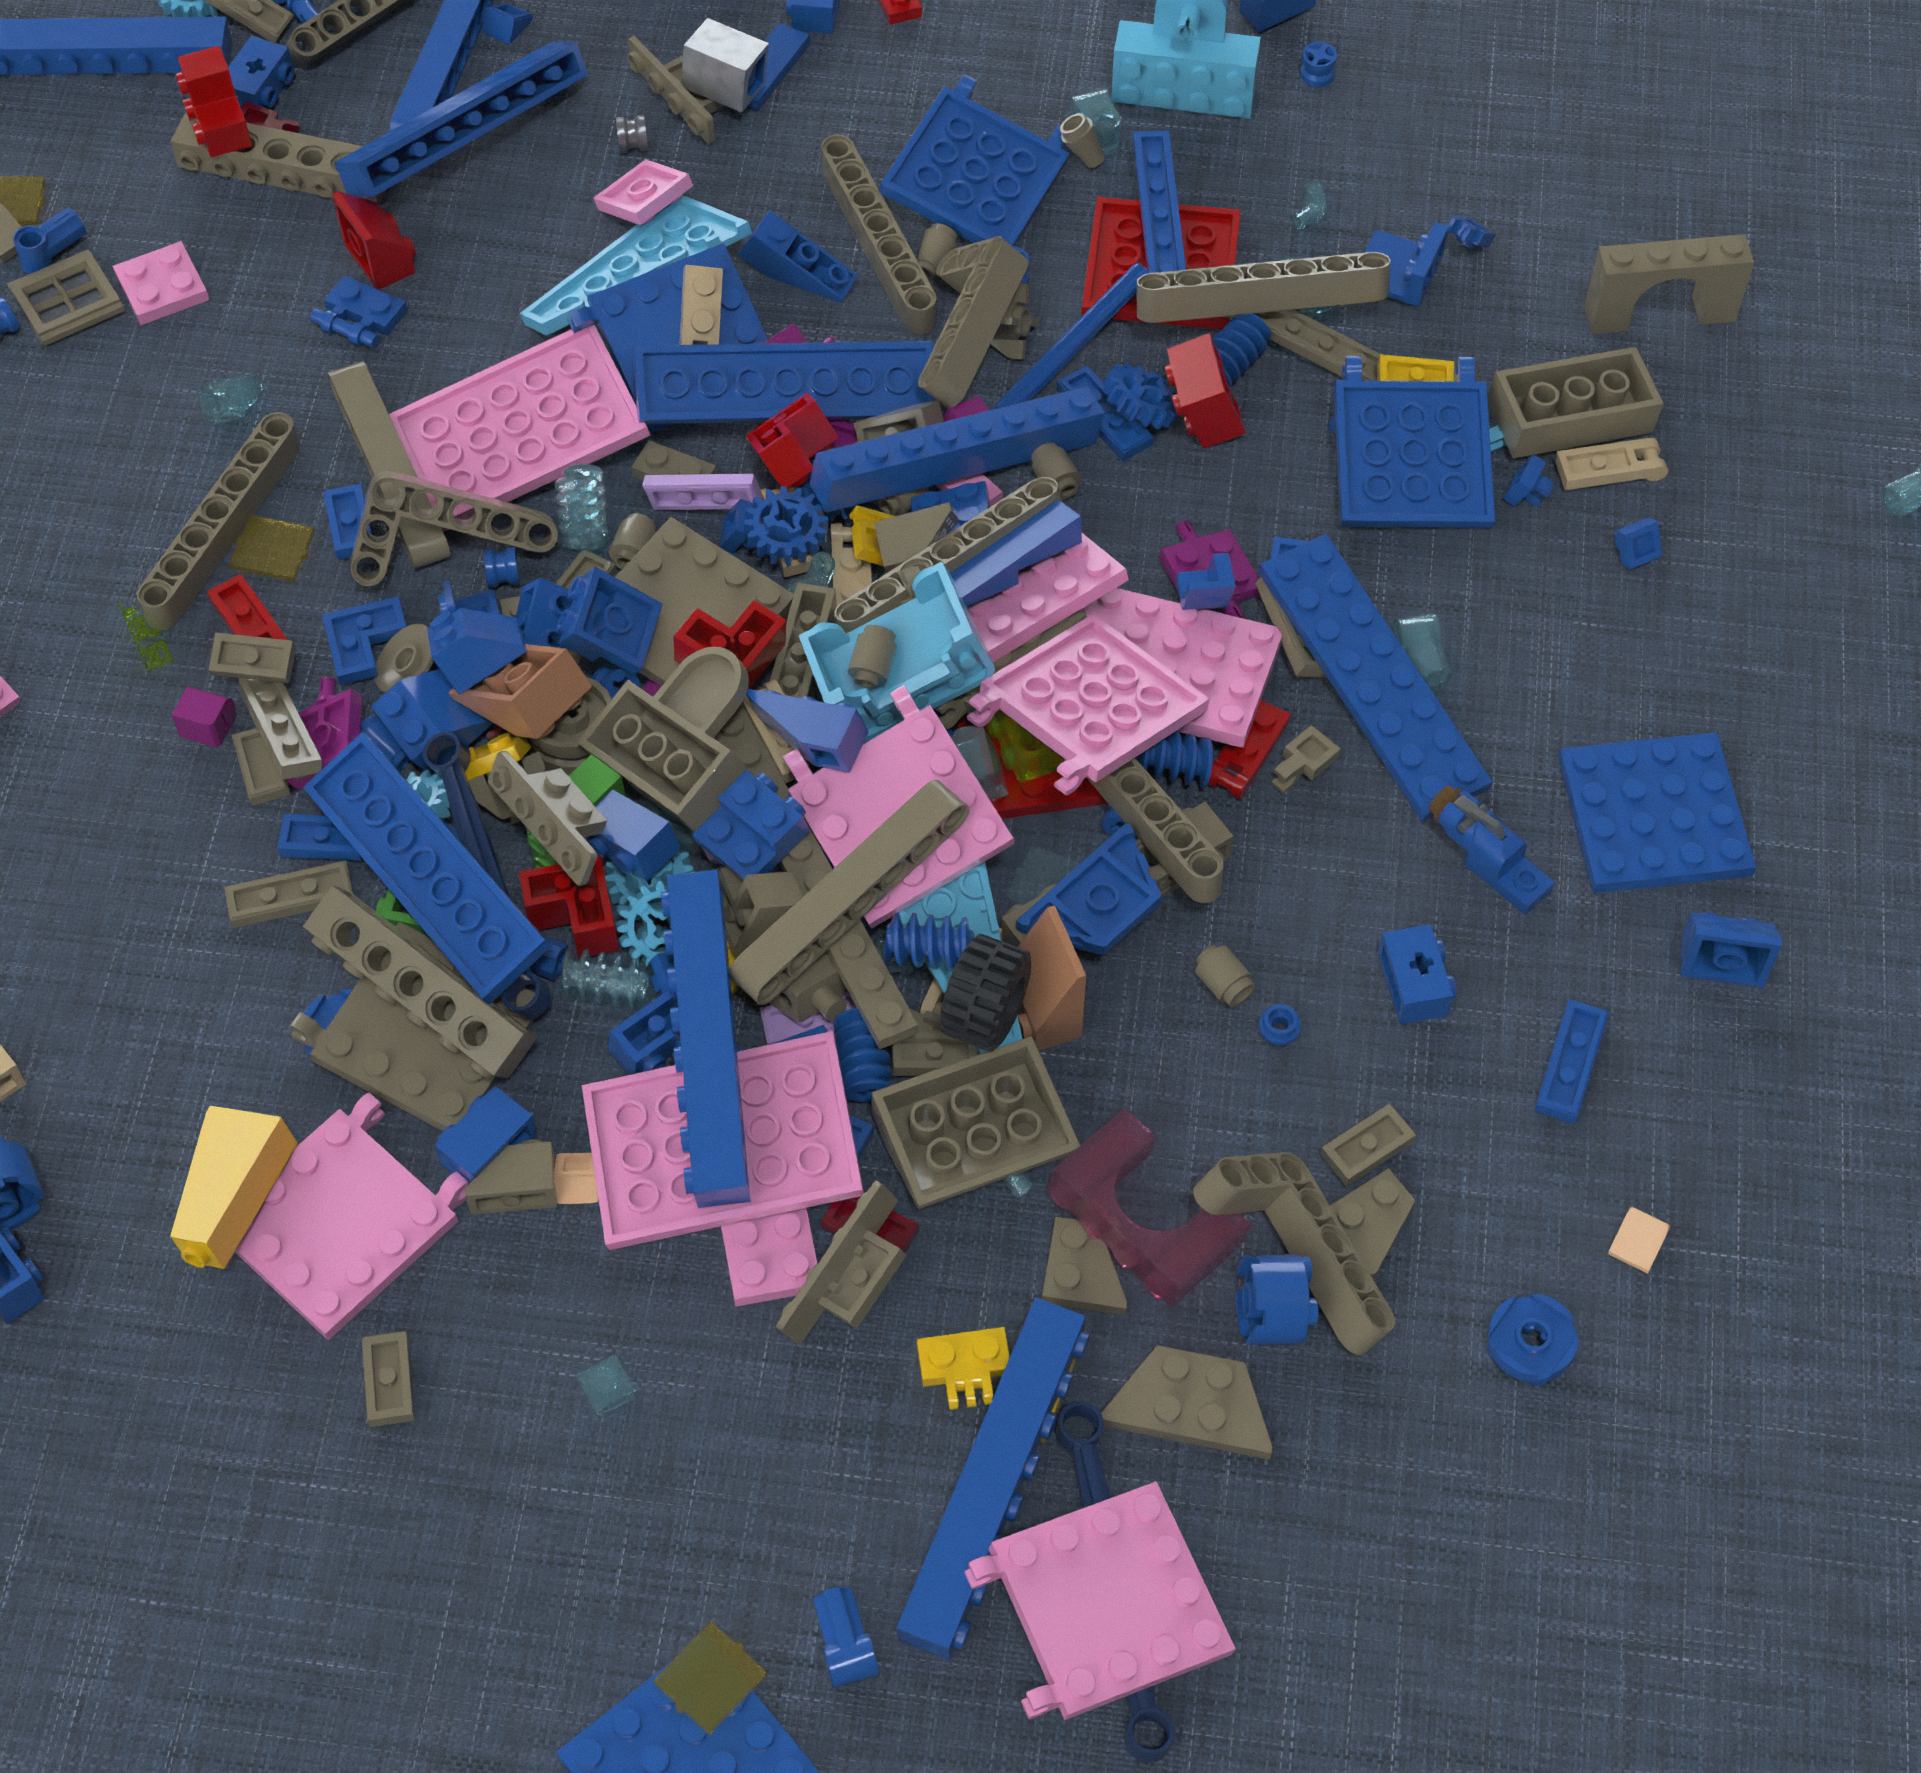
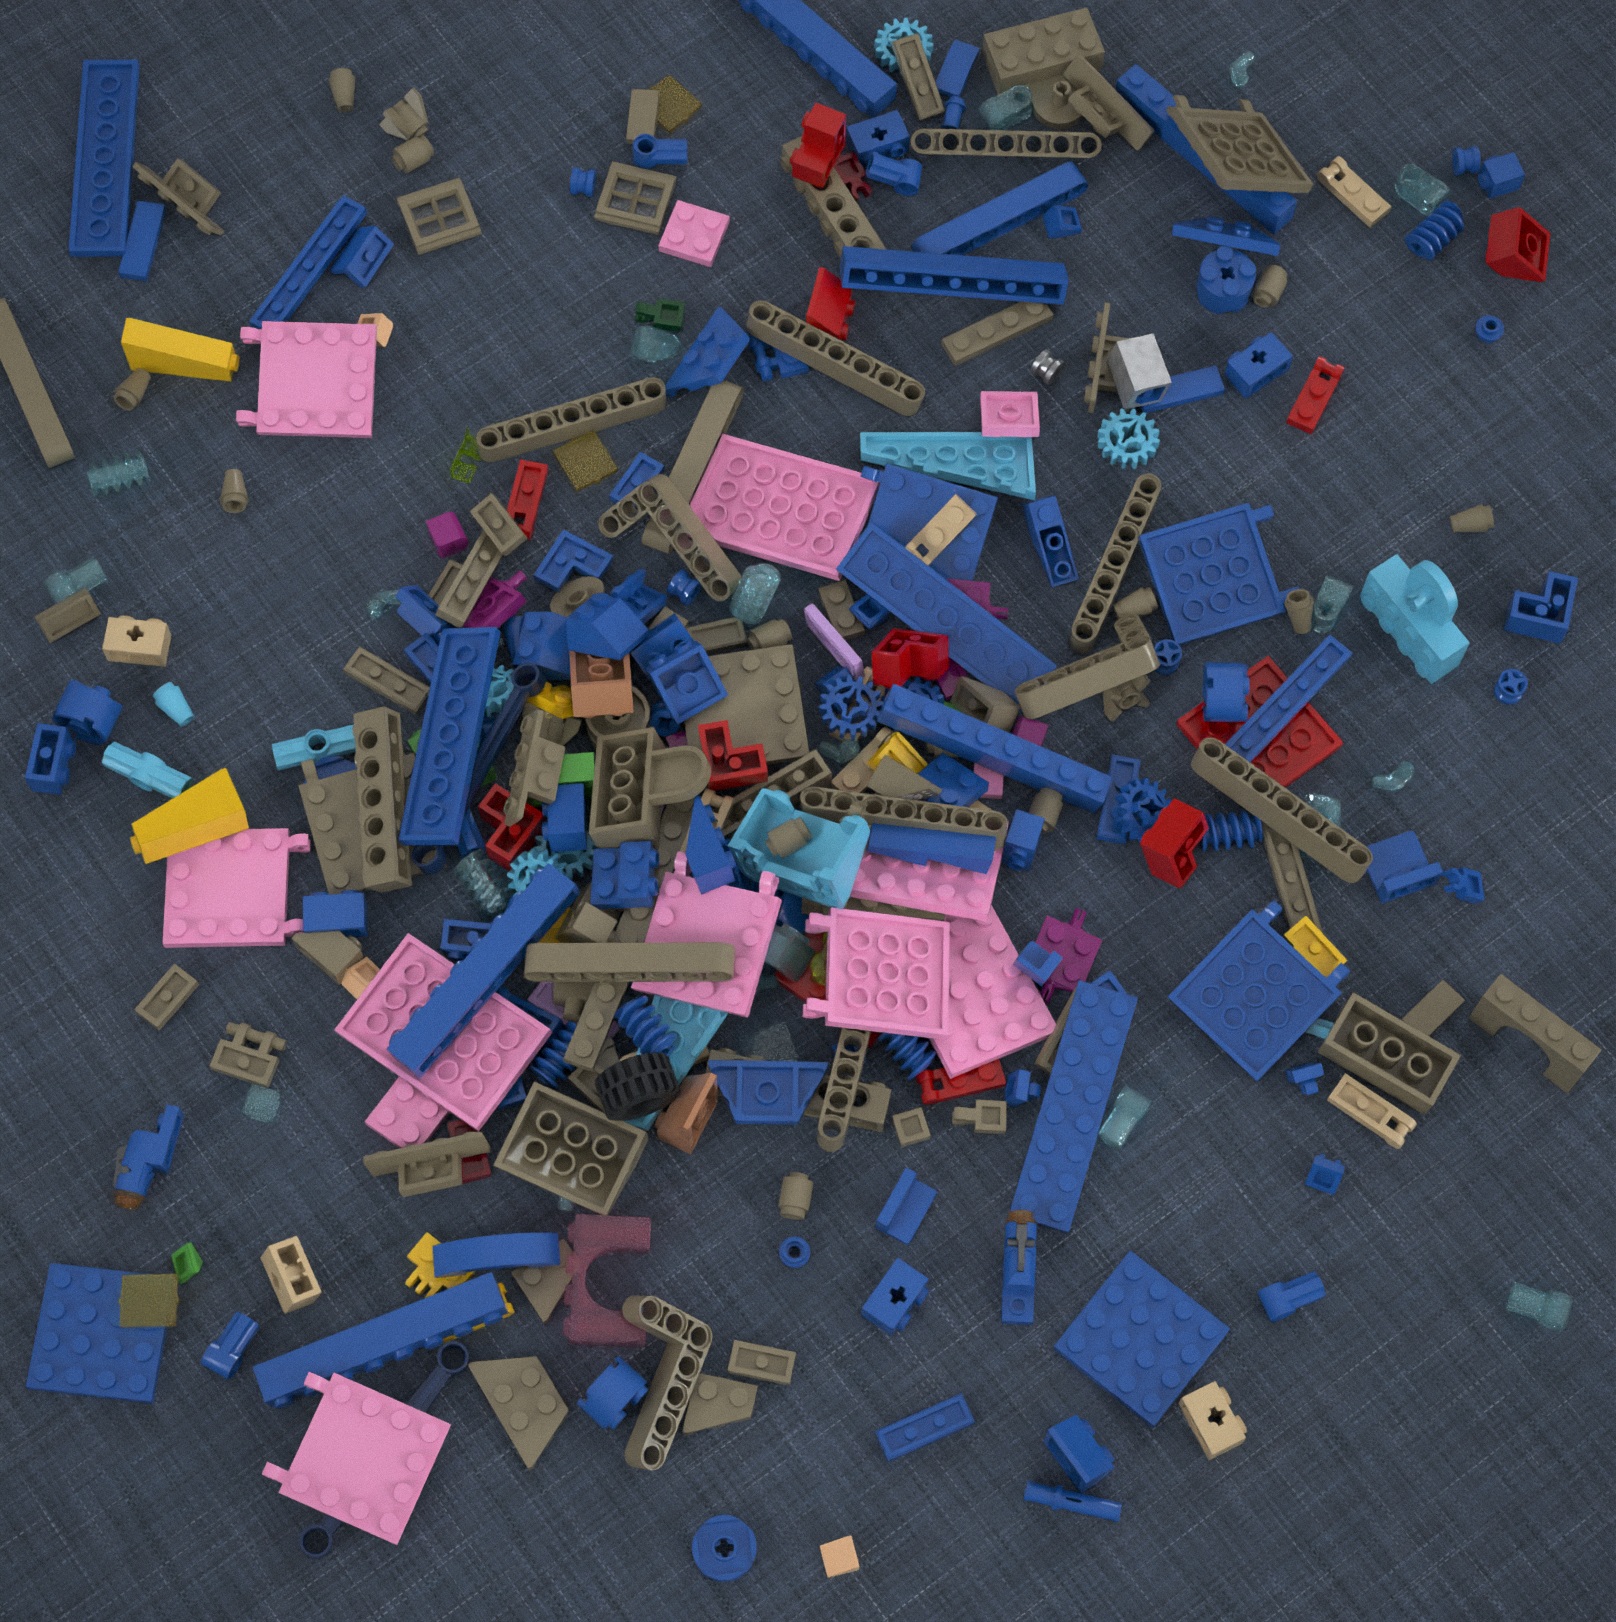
camera: 45 degrees right, 10 degrees up
(79, 1104) = (172, 702): none -> medium azure cone
(120, 1190) = (145, 770): none -> medium azure piece
(201, 824) = (380, 599): none -> clear light blue arm
(207, 364) = (665, 314): none -> dark green plate
(262, 800) = (420, 612): none -> blue panel
(271, 1026) = (294, 751): none -> medium azure piece
(299, 357) = (710, 355): none -> blue wing
(310, 88) = (902, 174): none -> blue piece
(425, 268) = (826, 346): none -> dark tan beam
(541, 1552) = (143, 1155): none -> blue plate
(544, 1362) = (246, 1063): none -> dark tan plate
(547, 145) = (995, 330): none -> dark tan plate
(702, 1605) = (186, 1262): none -> bright green slope
(704, 442) = (870, 612): none -> blue slope
(771, 132) = (1134, 448): none -> medium azure gear
(830, 1505) = (290, 1274): none -> tan brick
(1009, 1288) = (496, 1252): none -> blue slope
(1074, 339) = (1143, 738): blue axle -> none
(1078, 491) = (1022, 840): none -> blue brick
(1104, 239) = (1225, 692): none -> blue brick
(1254, 824) = (911, 1127): none -> dark tan plate
(1308, 704) = (1019, 1089): none -> blue tile
(1329, 895) = (905, 1207): none -> blue panel
(1558, 339) = (1434, 1008): none -> dark tan tile
(1730, 664) = (1284, 1298): none -> blue piece
(1754, 1003) = (1072, 1501): none -> blue pin
(1796, 816) = (1213, 1437): none -> tan brick

